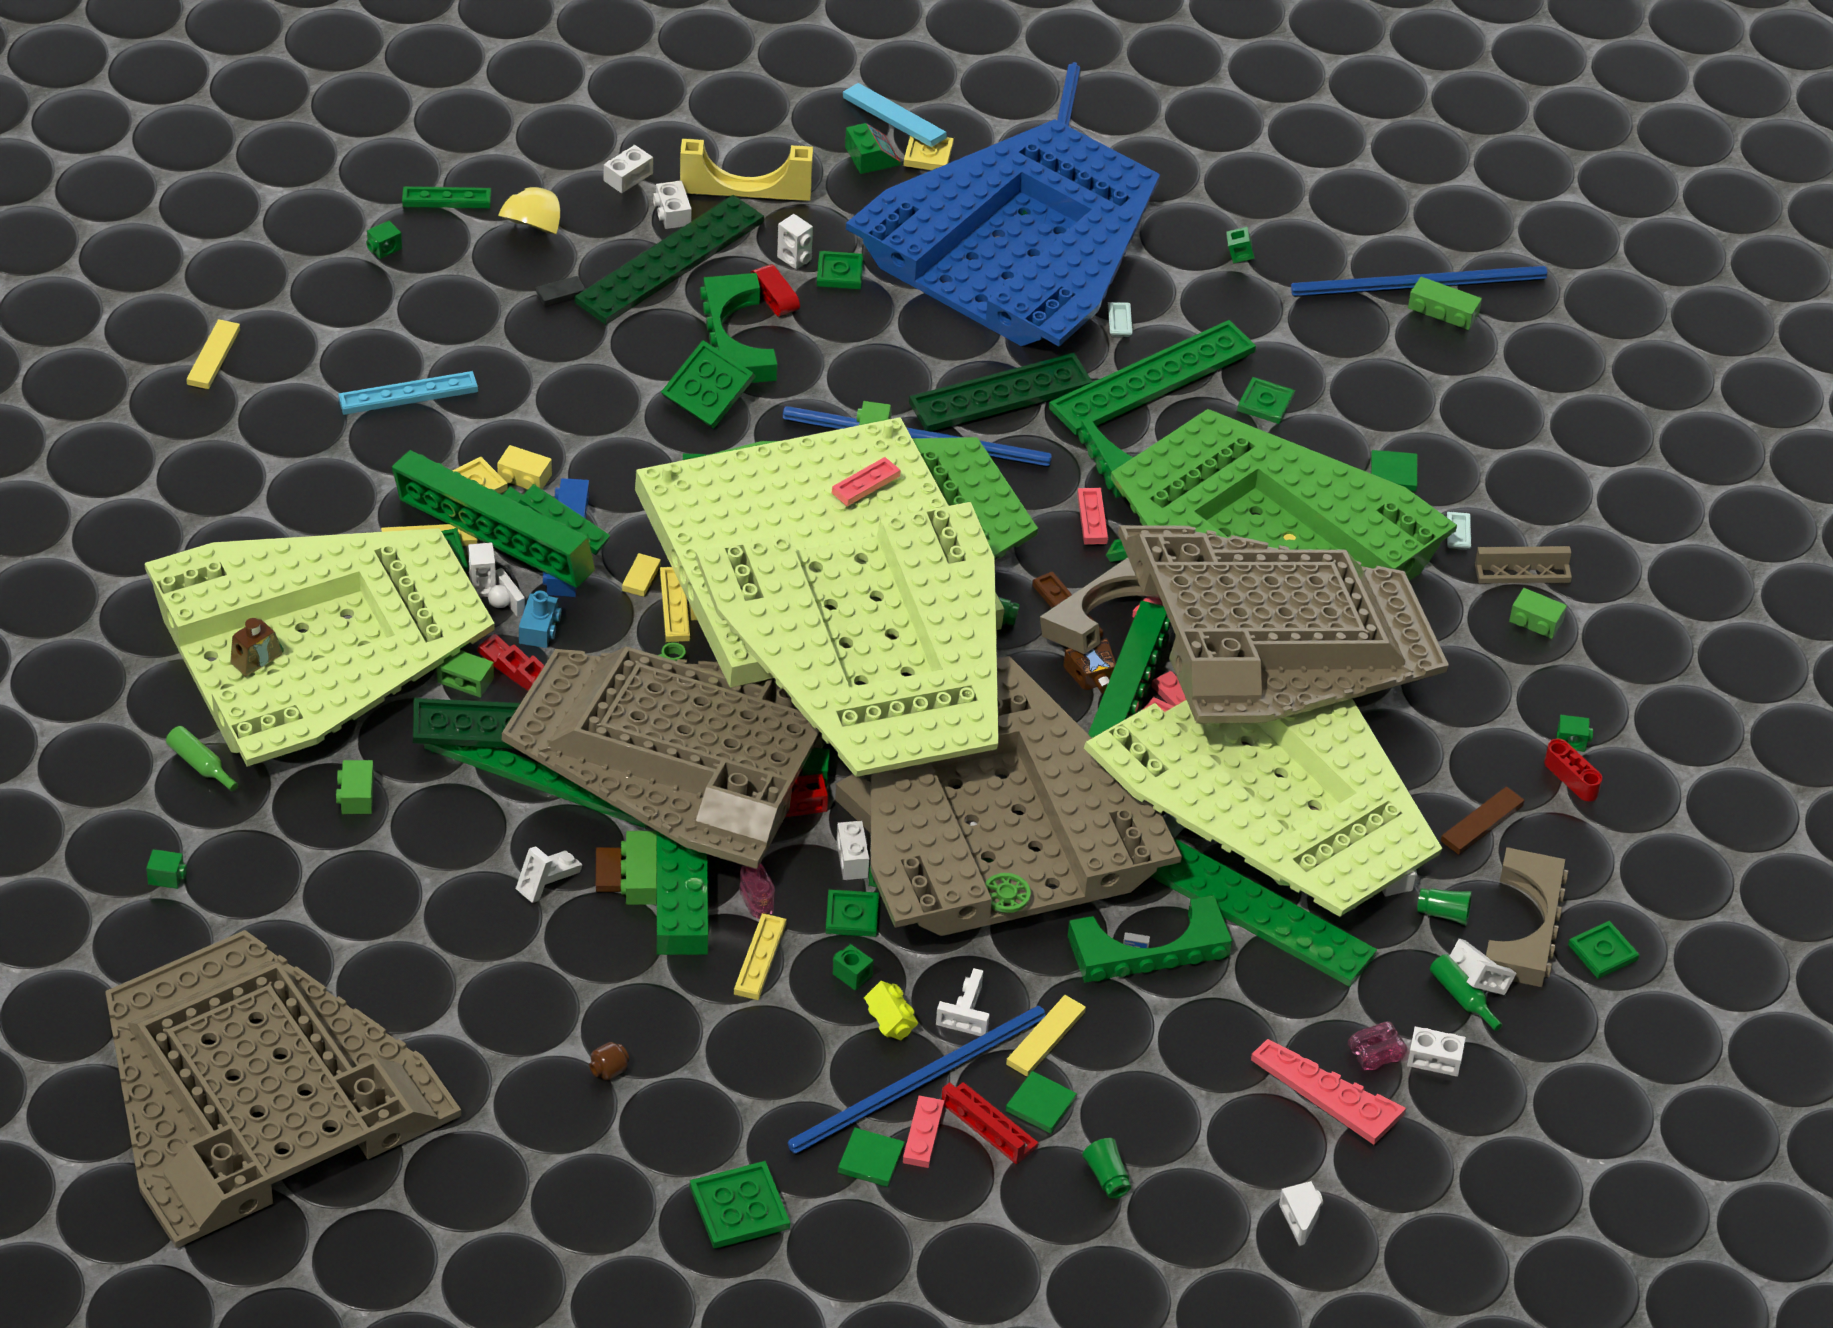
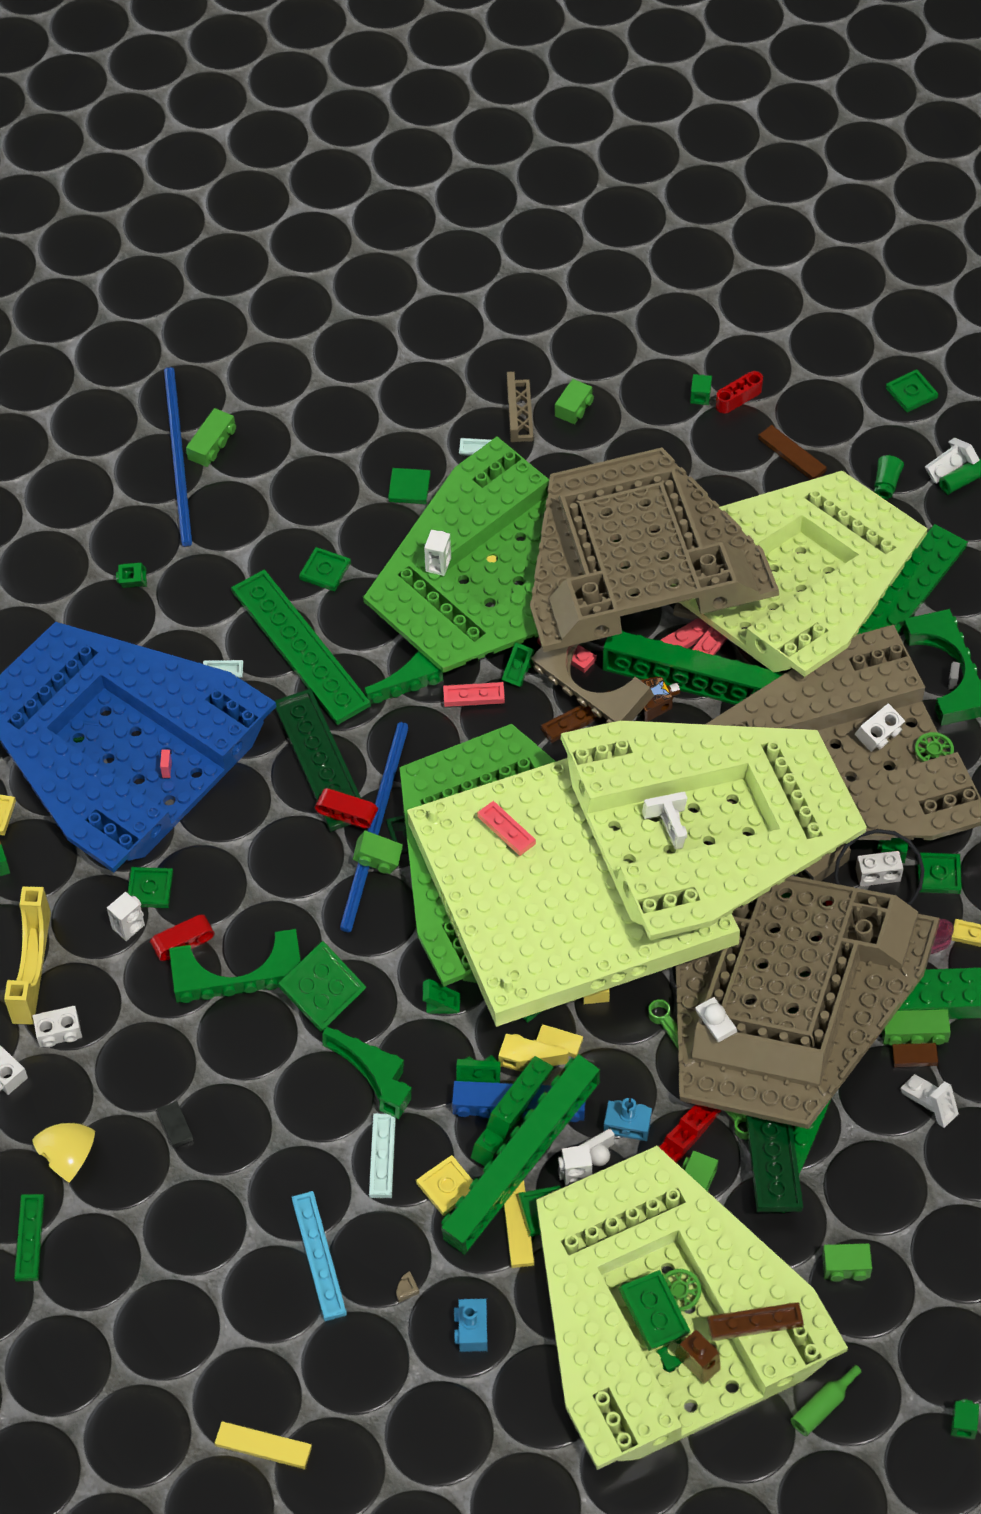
camera: 85 degrees left, 10 degrees up
(280, 682) = (755, 1321): none -> reddish brown tile
(308, 615) = (654, 1310): none -> green plate
(317, 494) = (472, 1325): none -> dark azure brick
(333, 643) = (681, 1290): none -> bright green wheel
(367, 455) = (407, 1287): none -> dark tan tile
(384, 239) = (99, 1289): green brick -> none
(518, 437) = (382, 1156): none -> light aqua tile
(524, 468) = (430, 1142): light yellow brick -> none
(606, 503) = (478, 1070): none -> green tile
(608, 431) = (377, 1066): none -> green arch
(624, 543) = (518, 1052): none -> light yellow slope
(629, 654) = (716, 1019): none -> white tile
(669, 259) = (131, 1031): dark green plate -> none
(674, 607) = (593, 1013): light yellow tile -> none
(859, 851) = (885, 832): none -> black piece
(866, 596) = (668, 808): none -> white bracket
(928, 401) = (346, 808): none -> red beam
(983, 265) = (166, 763): none -> coral tile
(1034, 833) = (877, 725): none -> white brick
(1258, 451) = (437, 552): none -> white brick
(1541, 879) = (856, 417): dark tan arch -> none

